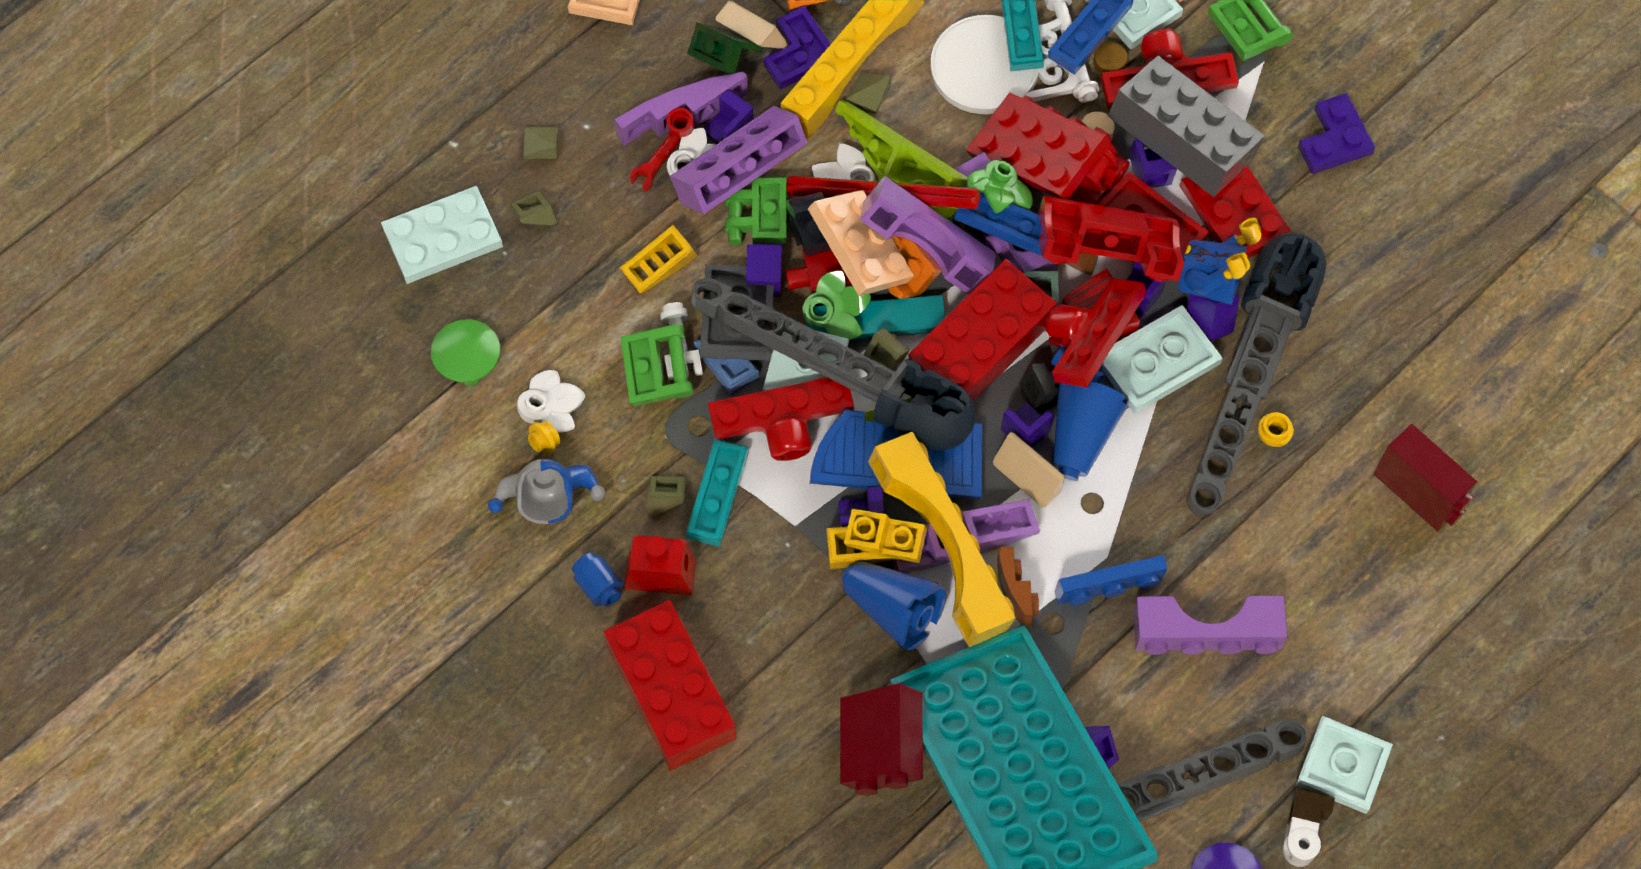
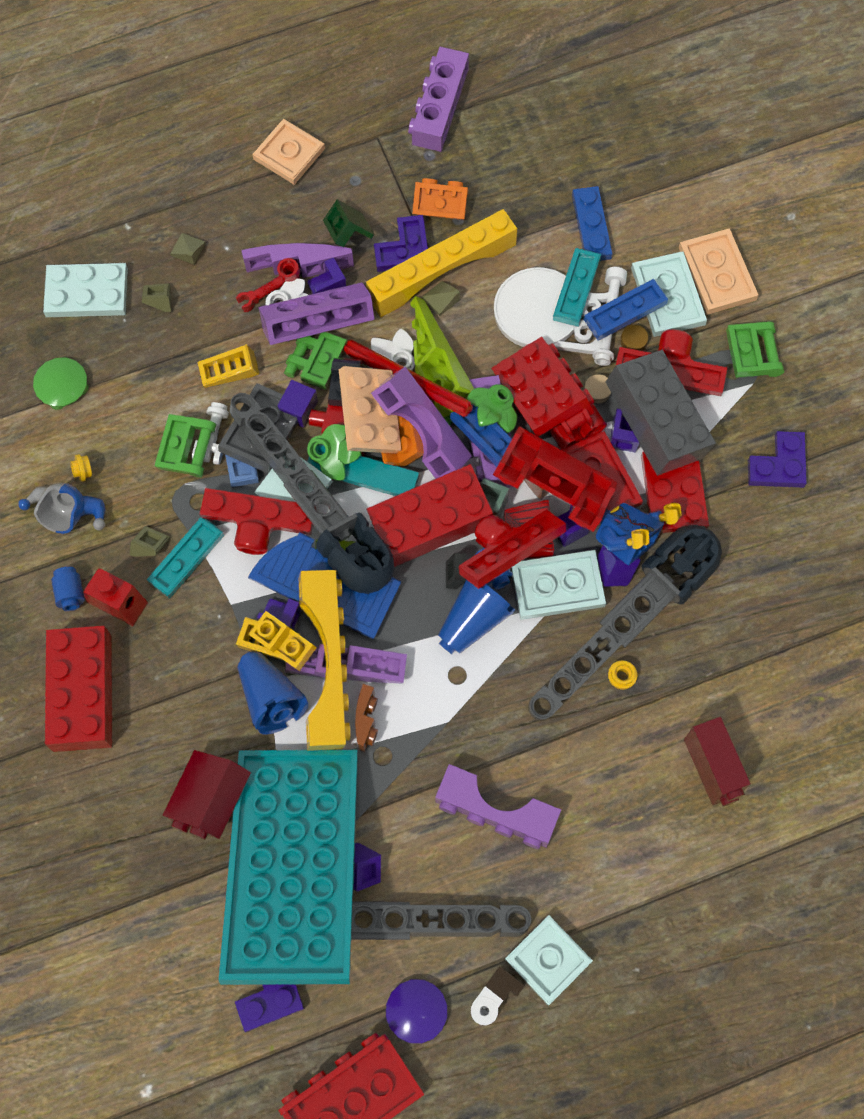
camera: 25 degrees right, 5 degrees up
(554, 399) = (104, 442): white plate -> none
(750, 26) = (373, 217): tan slope -> none
(886, 350) = (355, 498): olive tile -> none
(1027, 424) = (433, 597): dark purple panel -> none
(1028, 470) = (418, 632): tan slope -> none
(1111, 581) = (438, 743): blue plate -> none

